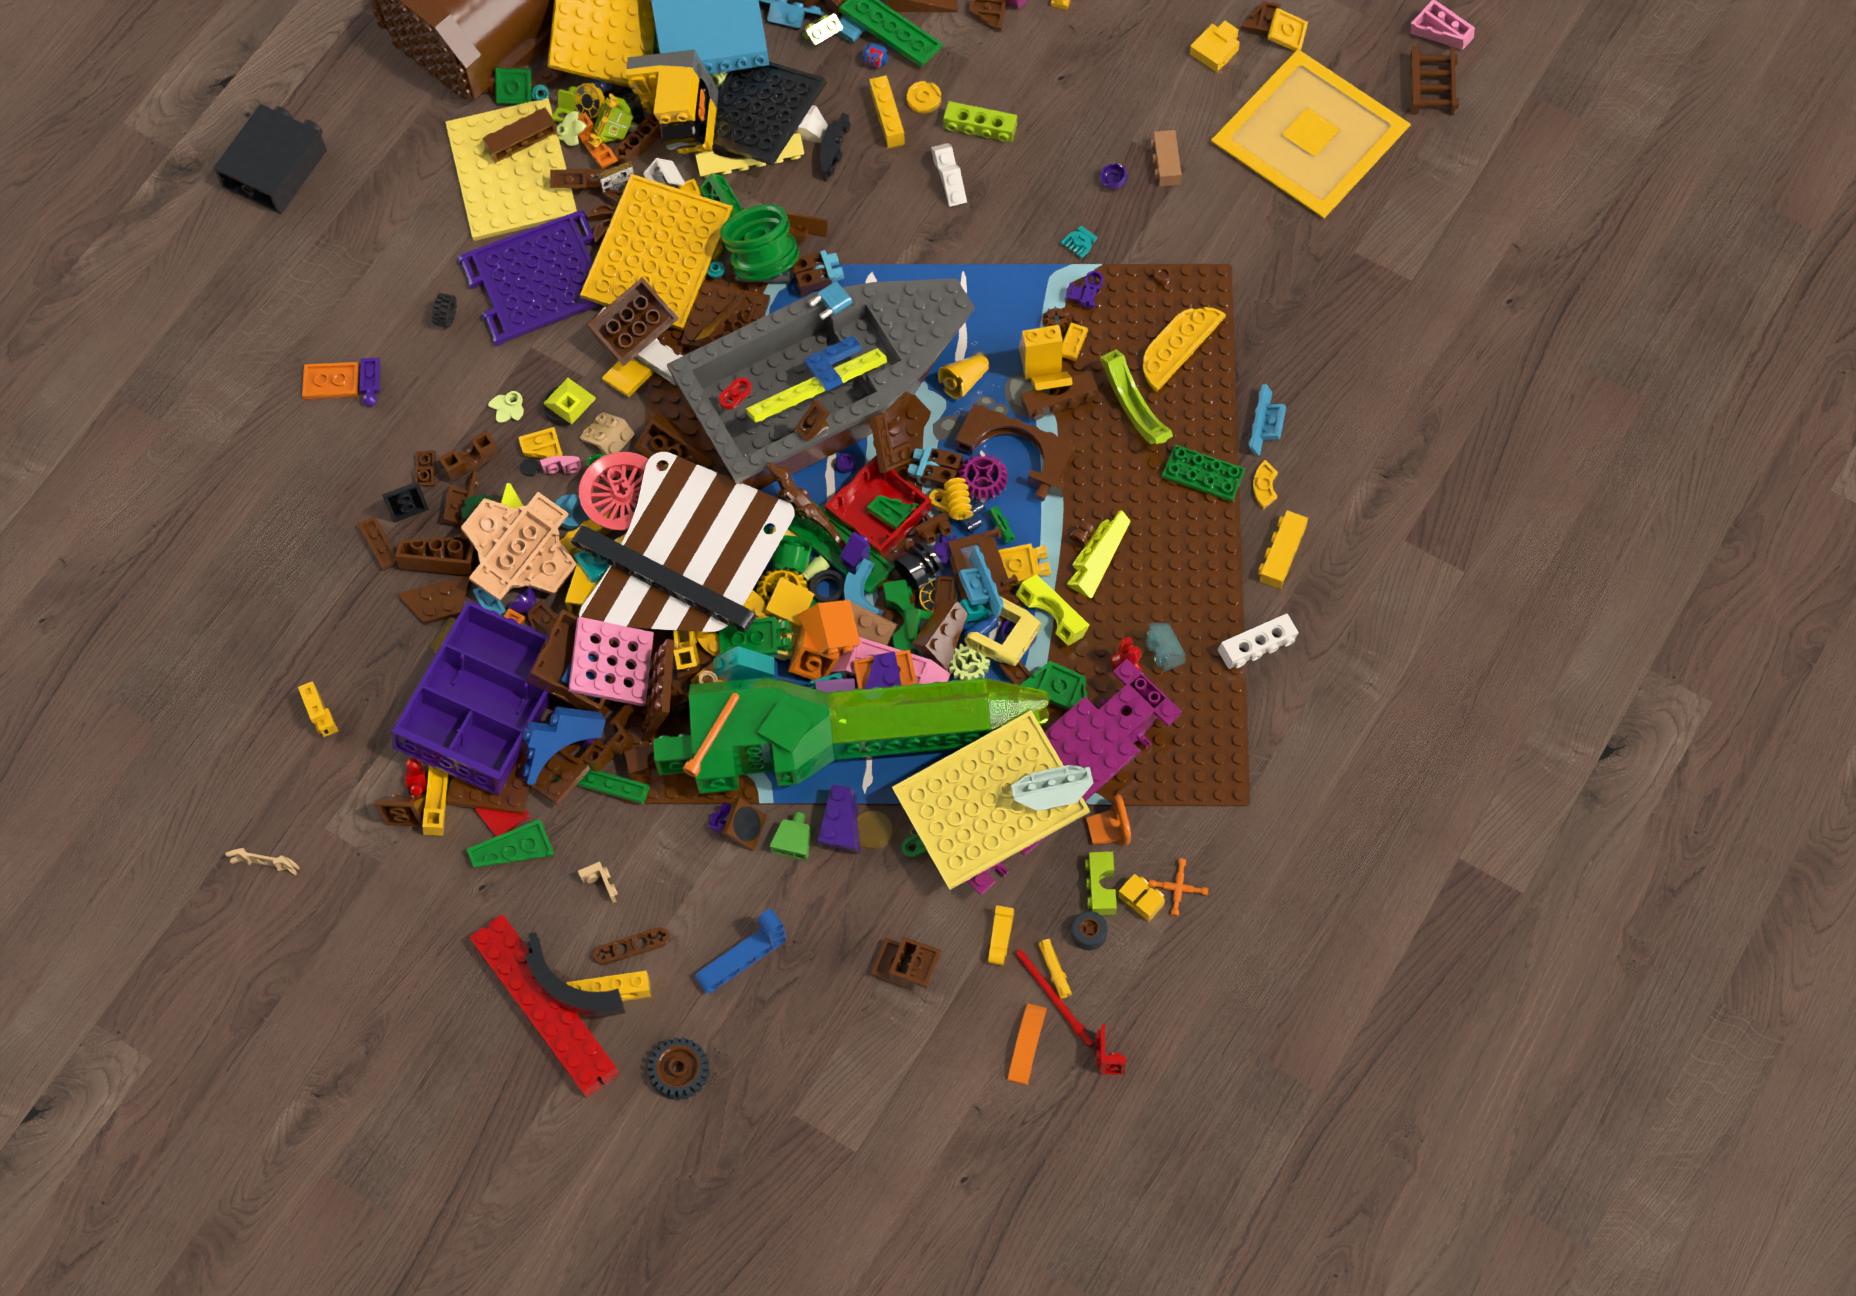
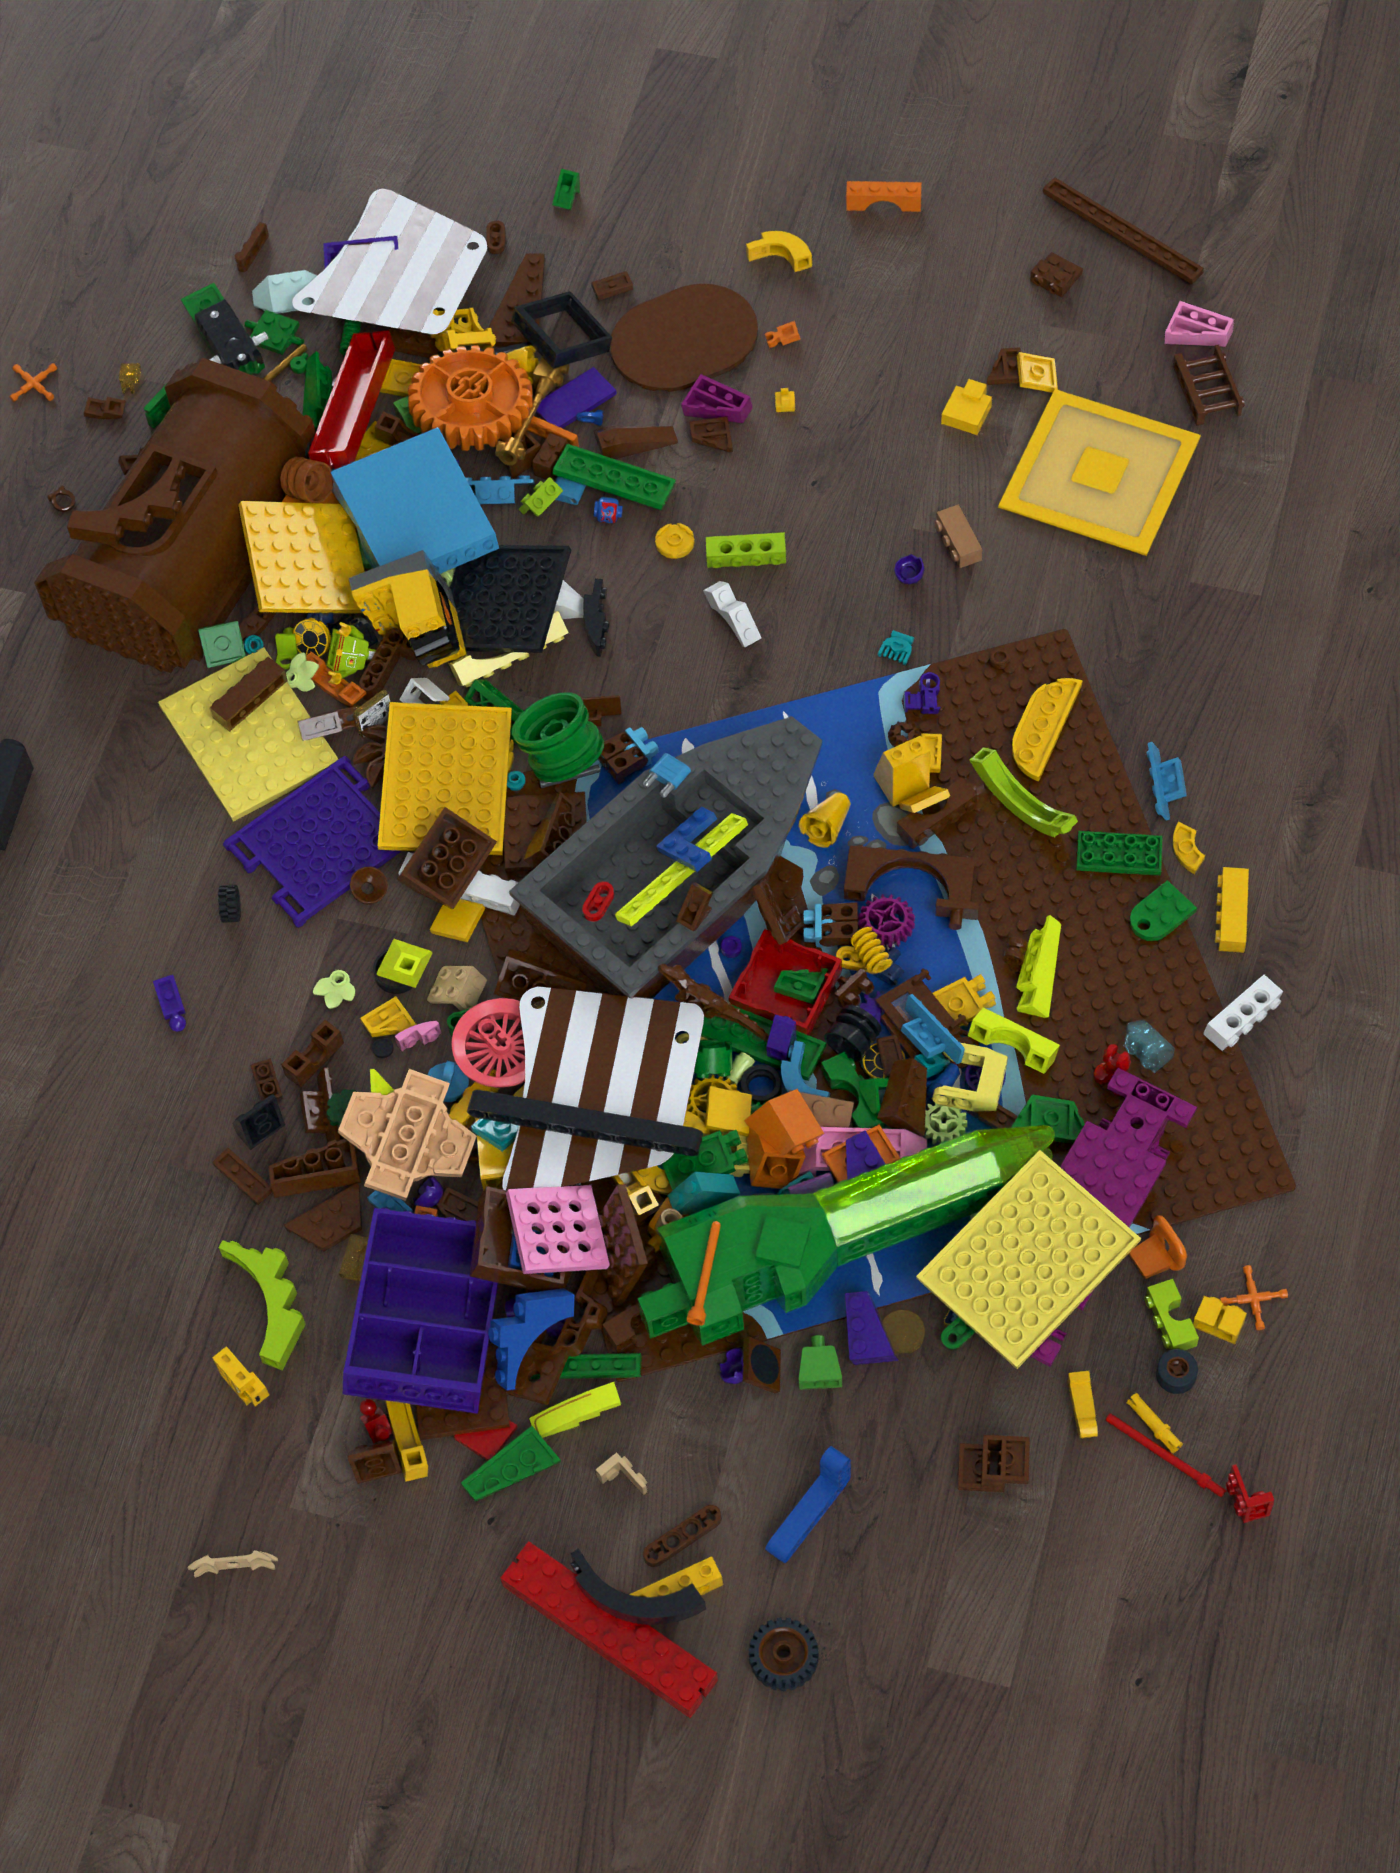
camera: 15 degrees left, 5 degrees down
(330, 380) = (125, 1014): orange tile -> none
(369, 675) = (283, 1324): none -> lime arch
(563, 317) = (372, 876): none -> reddish brown piece
(579, 816) = (575, 1410): none -> neon yellow slope
(887, 111) = (642, 565): yellow brick -> none
(1002, 523) = (921, 962): green pin -> none
(1026, 1044) = (1154, 1514): orange slope -> none
(1052, 787) = (1096, 1223): light aqua wedge -> none
(1221, 535) = (1162, 912): none -> green plate

